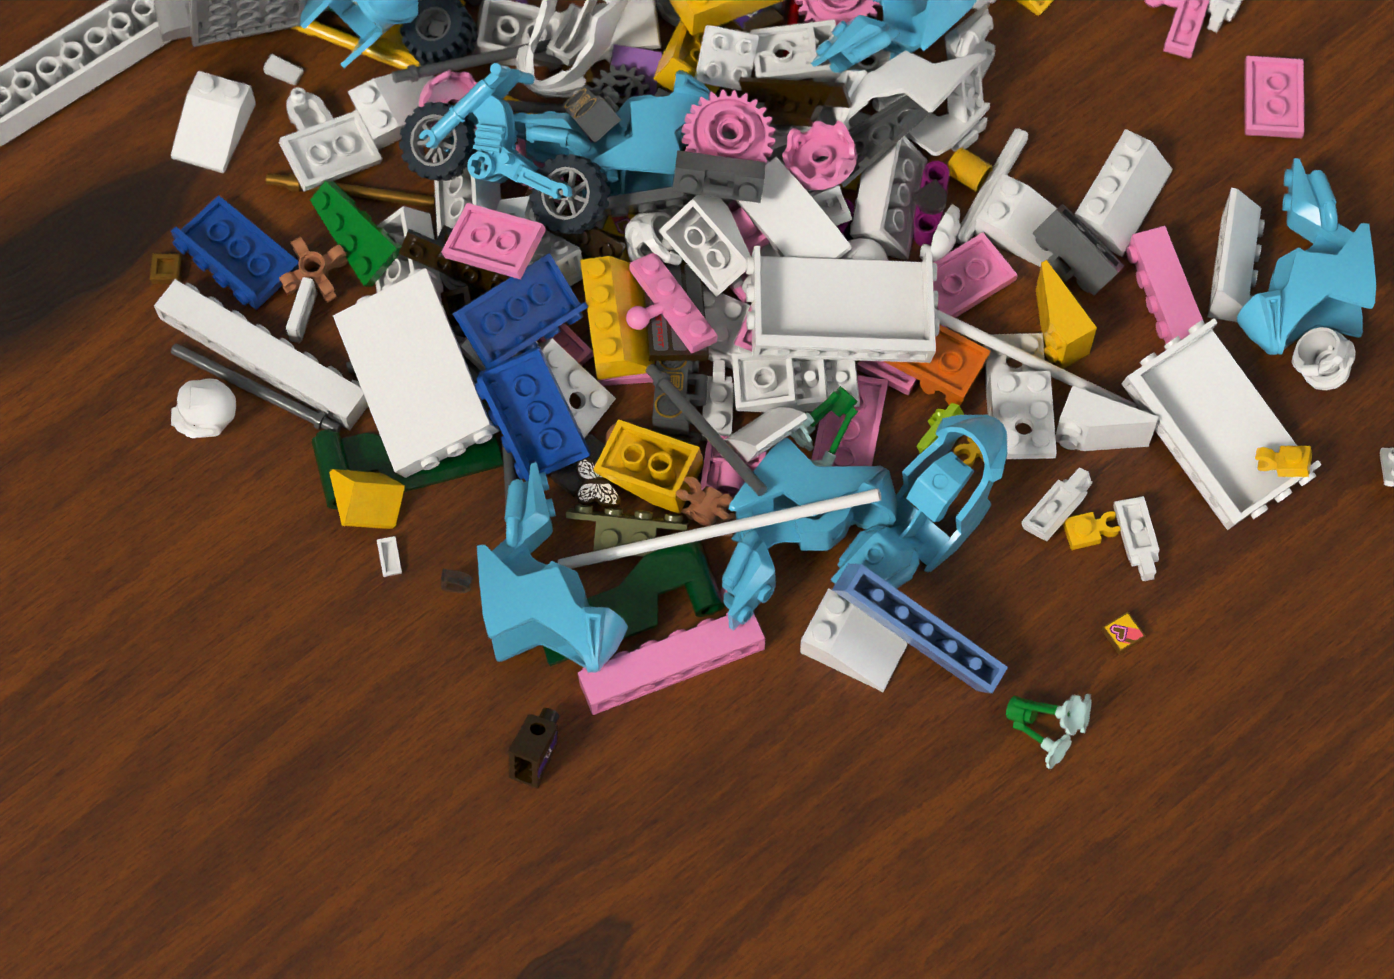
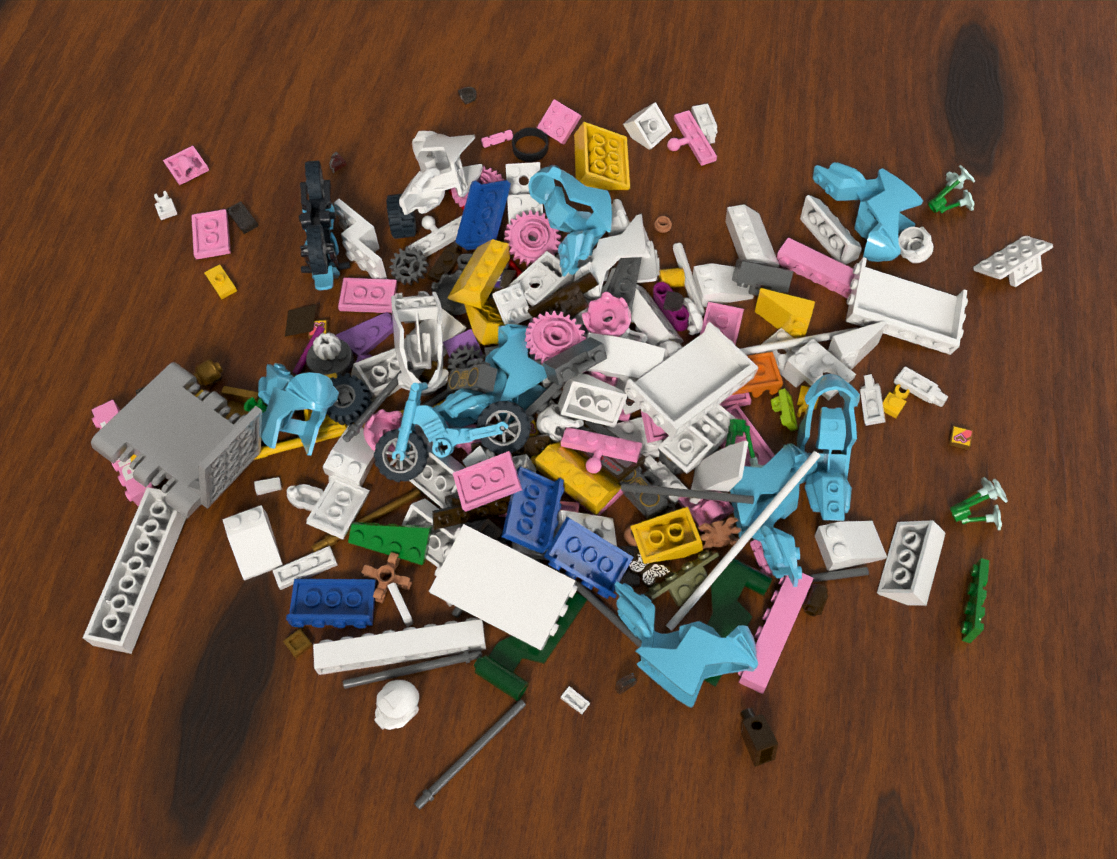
camera: 40 degrees left, 5 degrees down
(157, 526) = (465, 758): none -> dark grey bar
(243, 192) = (305, 567): none -> white tile
(366, 498) = (536, 677): yellow slope -> none
(747, 666) = (815, 600): none -> dark brown brick
(805, 662) = (840, 574): none -> dark grey bar
(903, 717) = (912, 562): none -> white slope
(919, 628) = (886, 508): medium blue brick -> none
(923, 817) = (974, 612): none -> green wing
(1031, 86) = (663, 220): none -> nougat plate
(1274, 97) = (770, 151): bright pink plate -> none
(1289, 462) = (951, 299): yellow plate -> none

